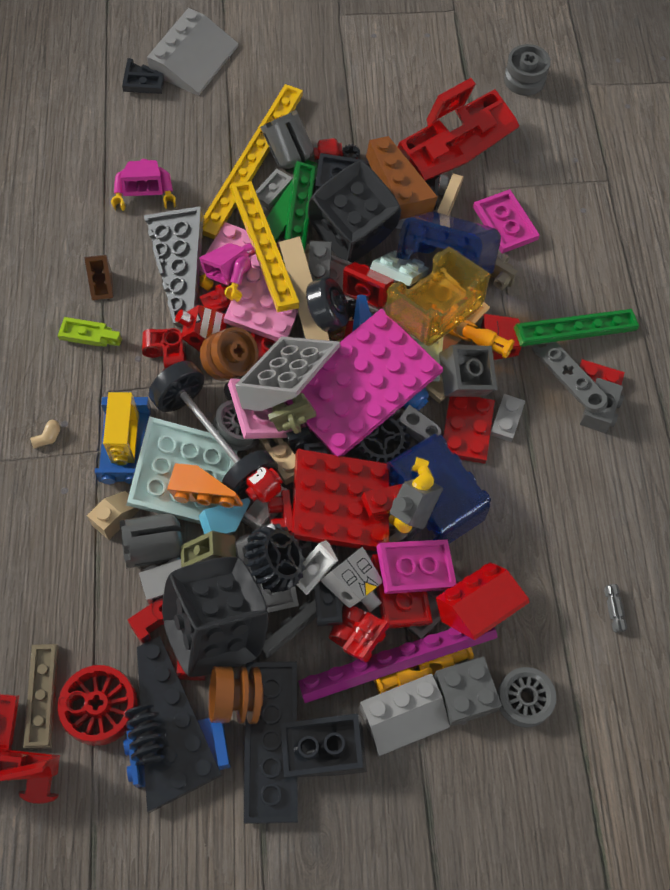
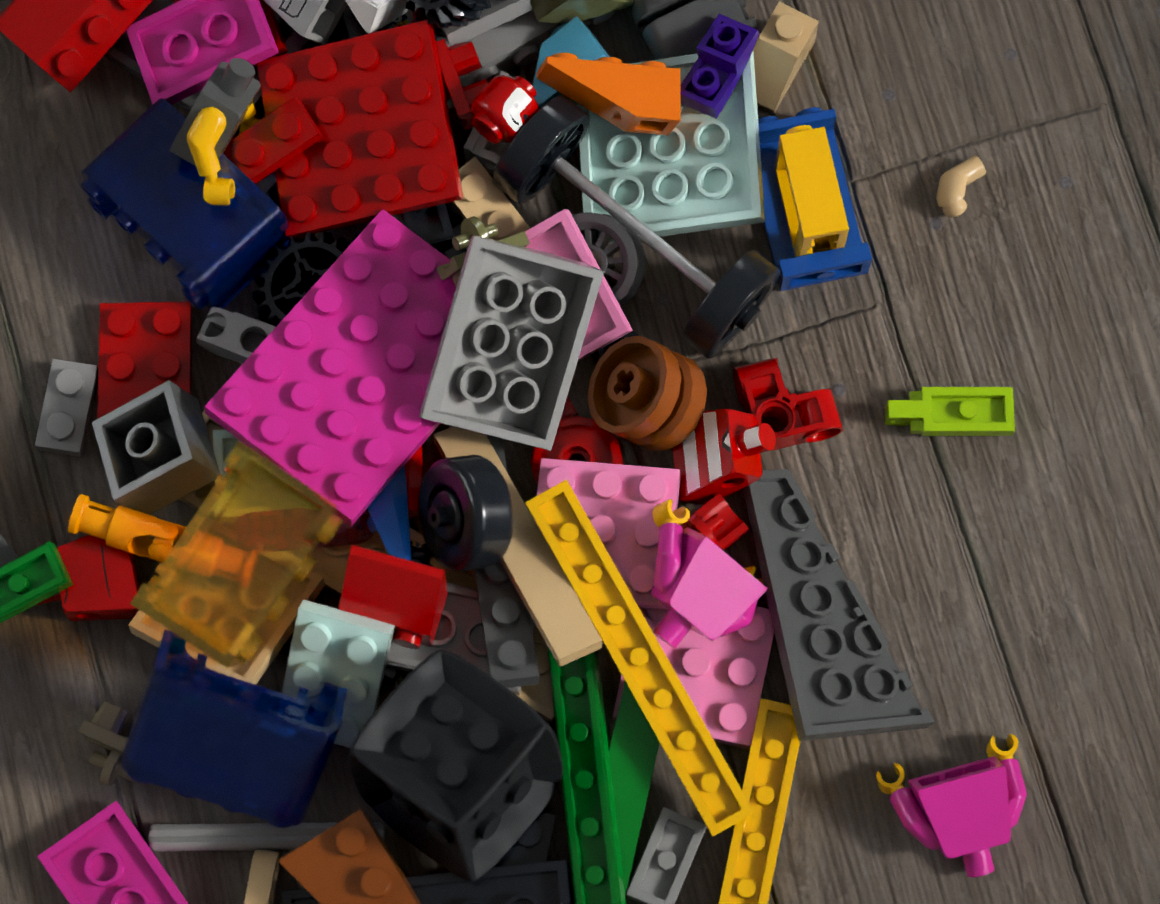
camera: 170 degrees right, 10 degrees up
(99, 277) = (973, 538): reddish brown slope -> none
(146, 494) = (719, 65): none -> dark purple slope

